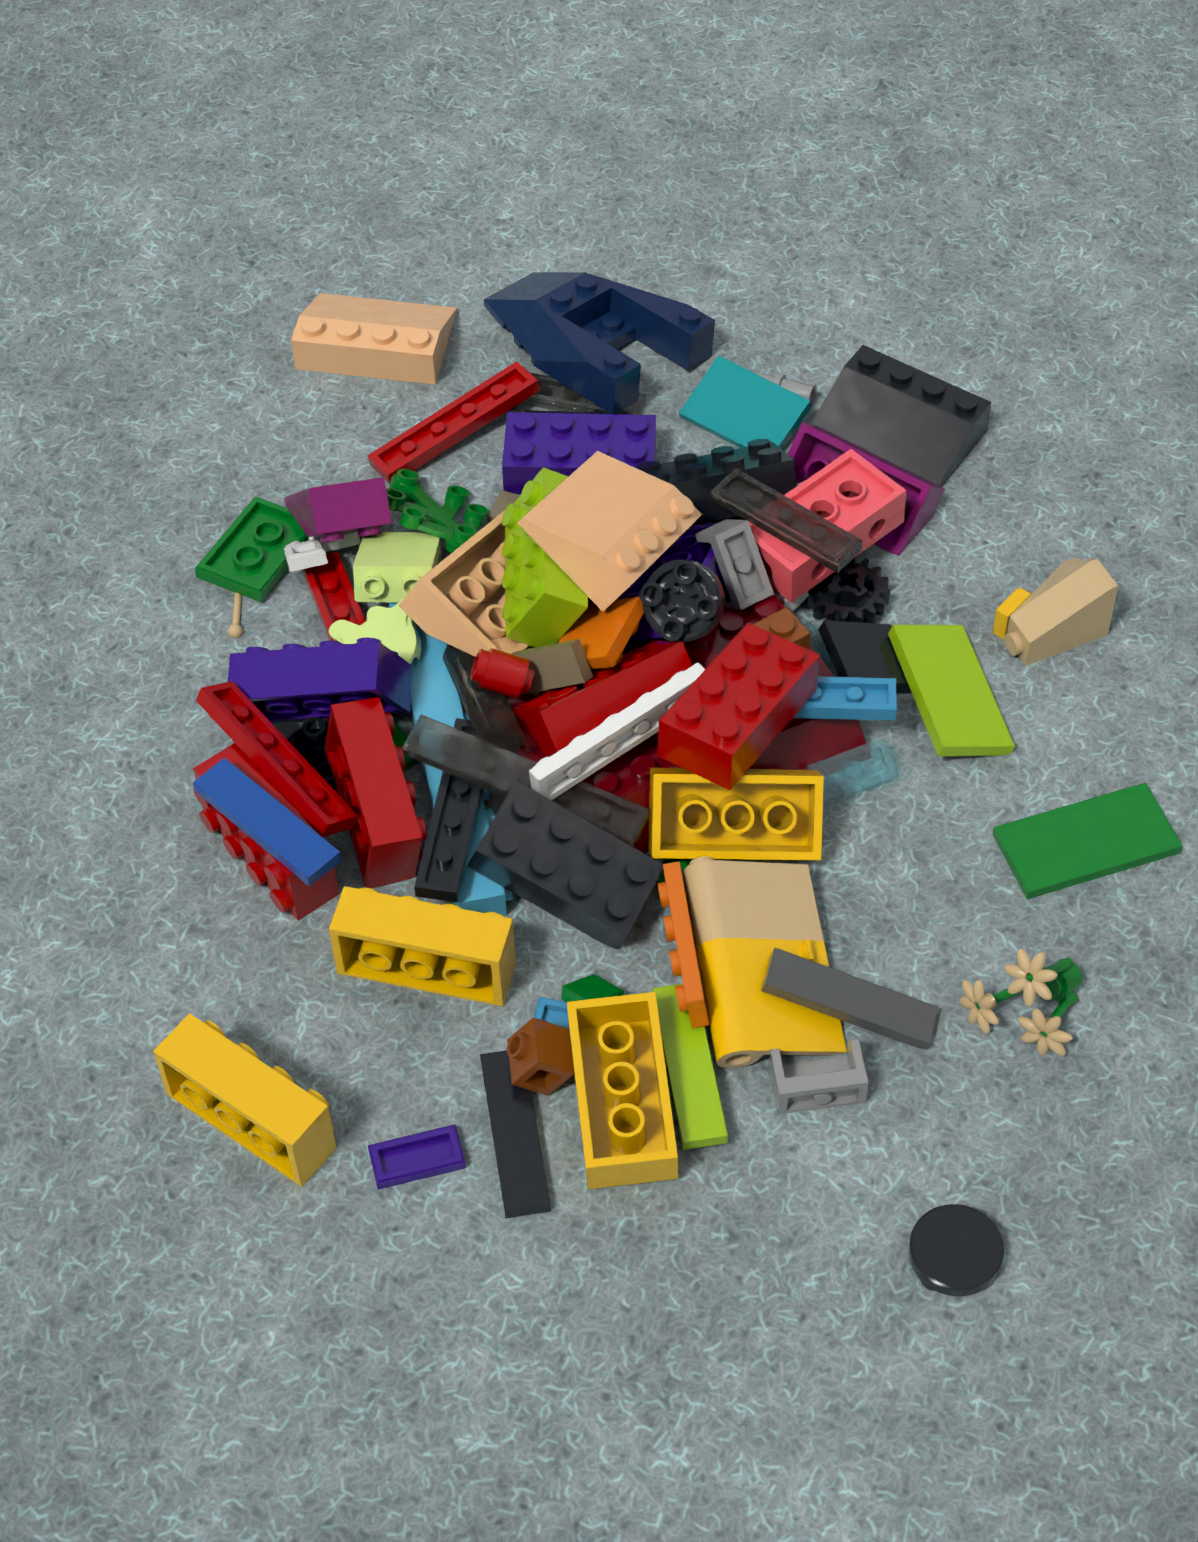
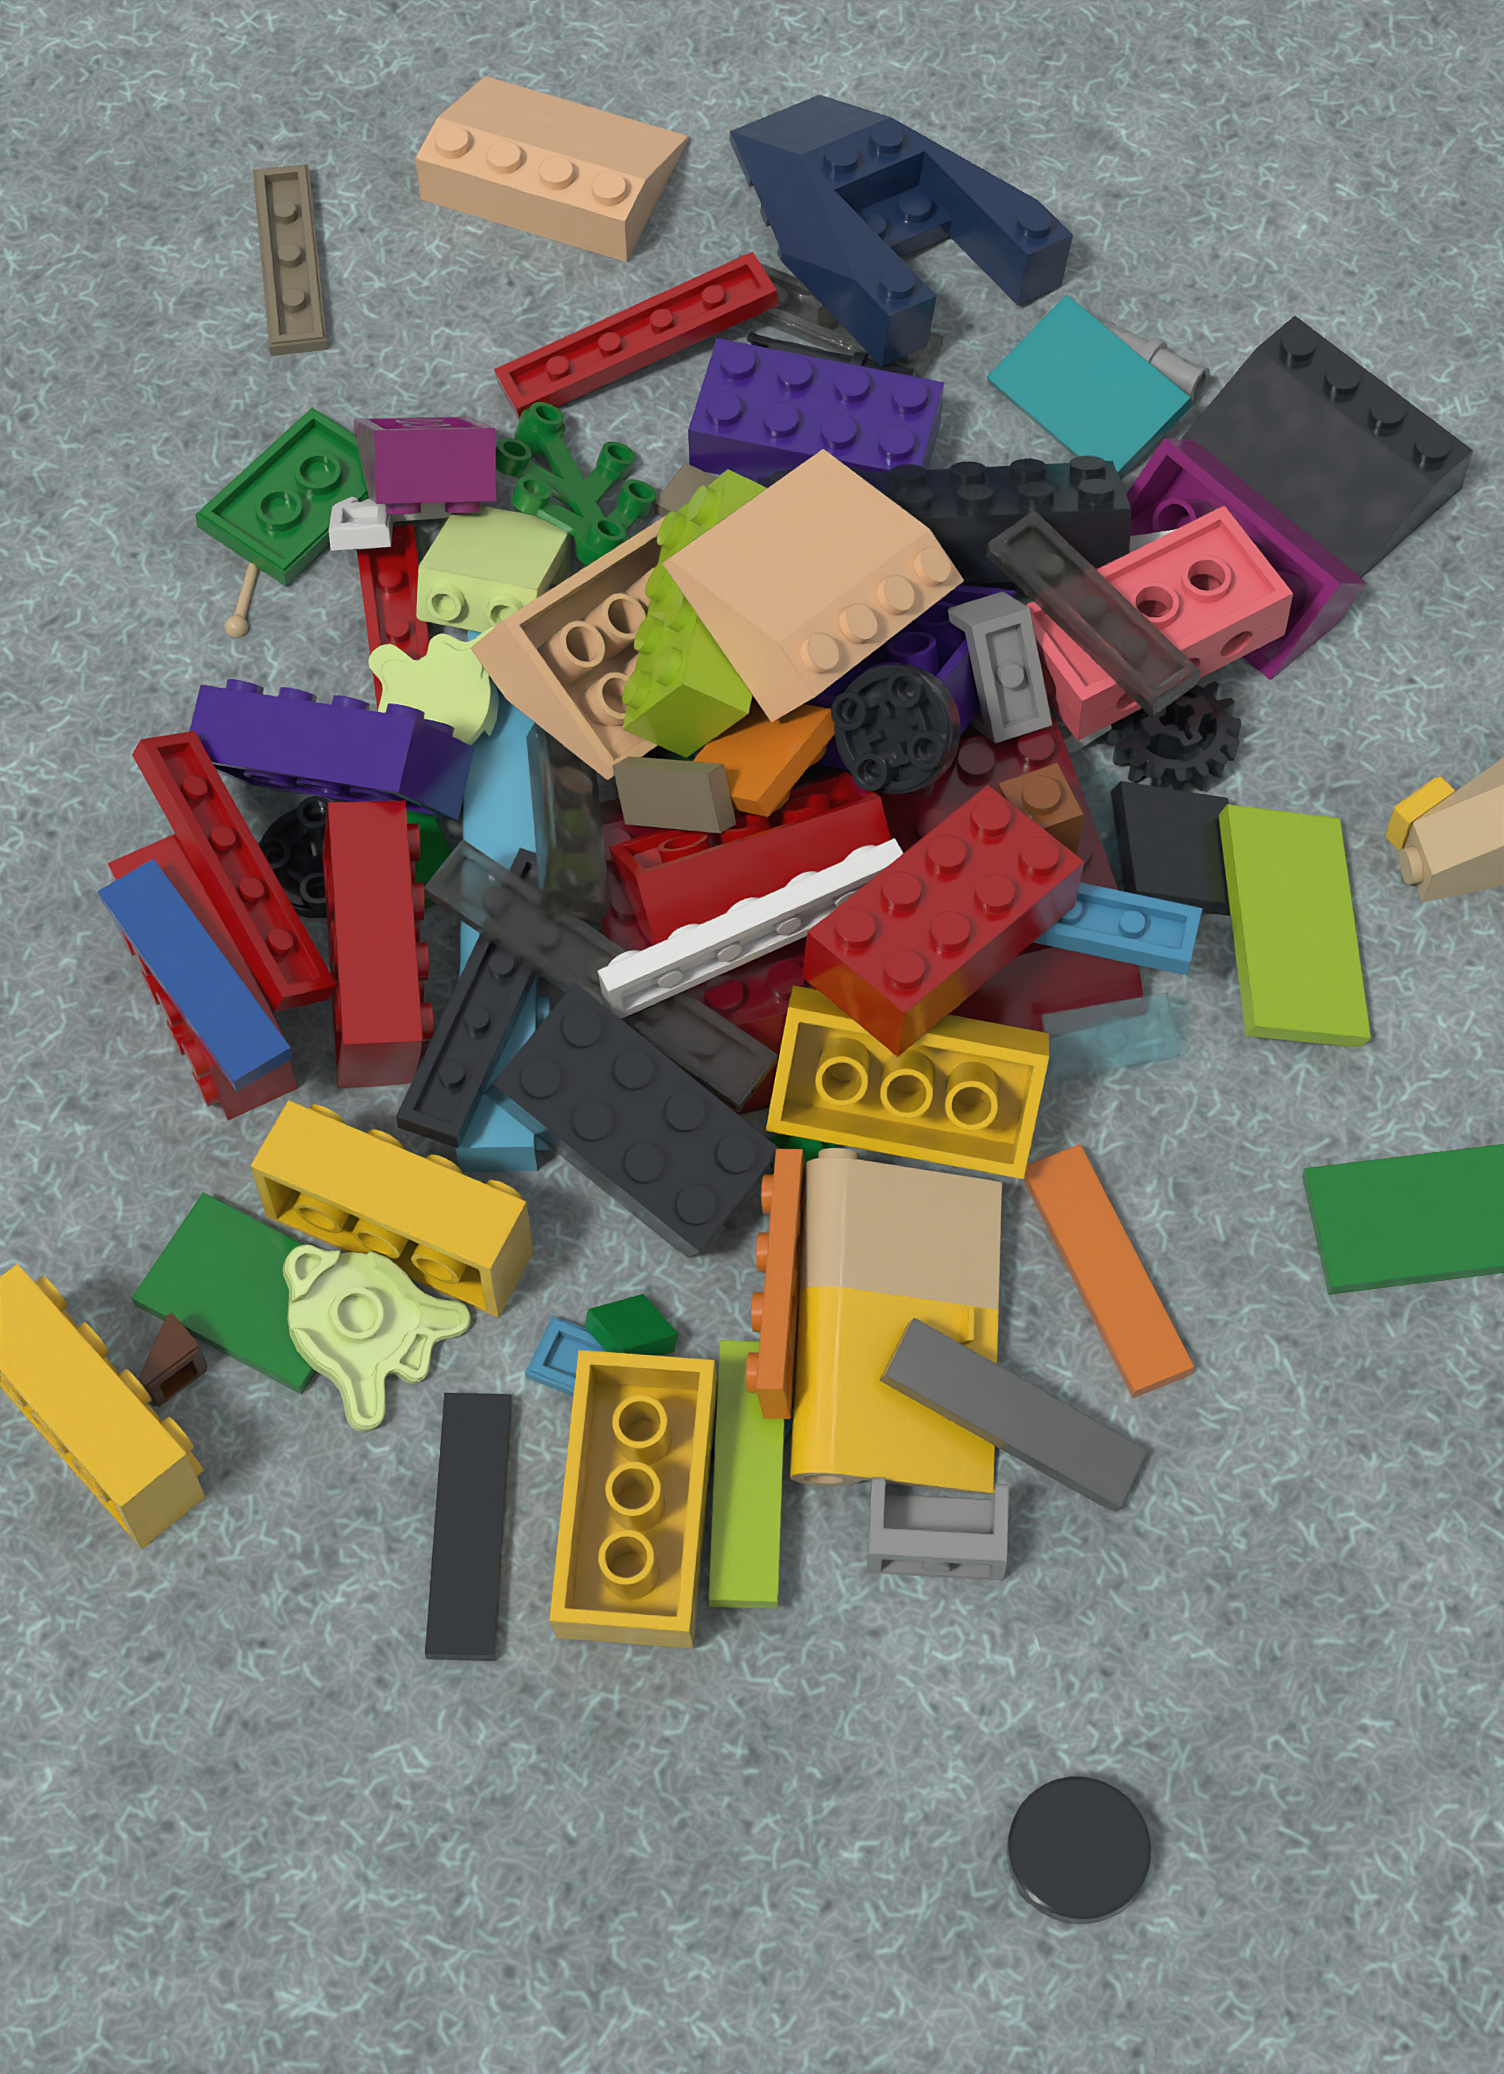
camera: 10 degrees right, 10 degrees up
(220, 415) = (290, 260): none -> dark tan tile
(300, 1061) = (172, 1362): none -> reddish brown slope
(338, 1019) = (229, 1289): none -> green tile
(416, 1156) = (317, 1536): dark purple tile -> none
(418, 1022) = (364, 1321): none -> yellowish green tile
(502, 672) = (598, 793): red brick -> none
(540, 1056) = (526, 1418): dark orange brick -> none
(885, 909) = (1107, 1271): none -> orange tile
(1050, 983) = (1330, 1446): tan plant -> none

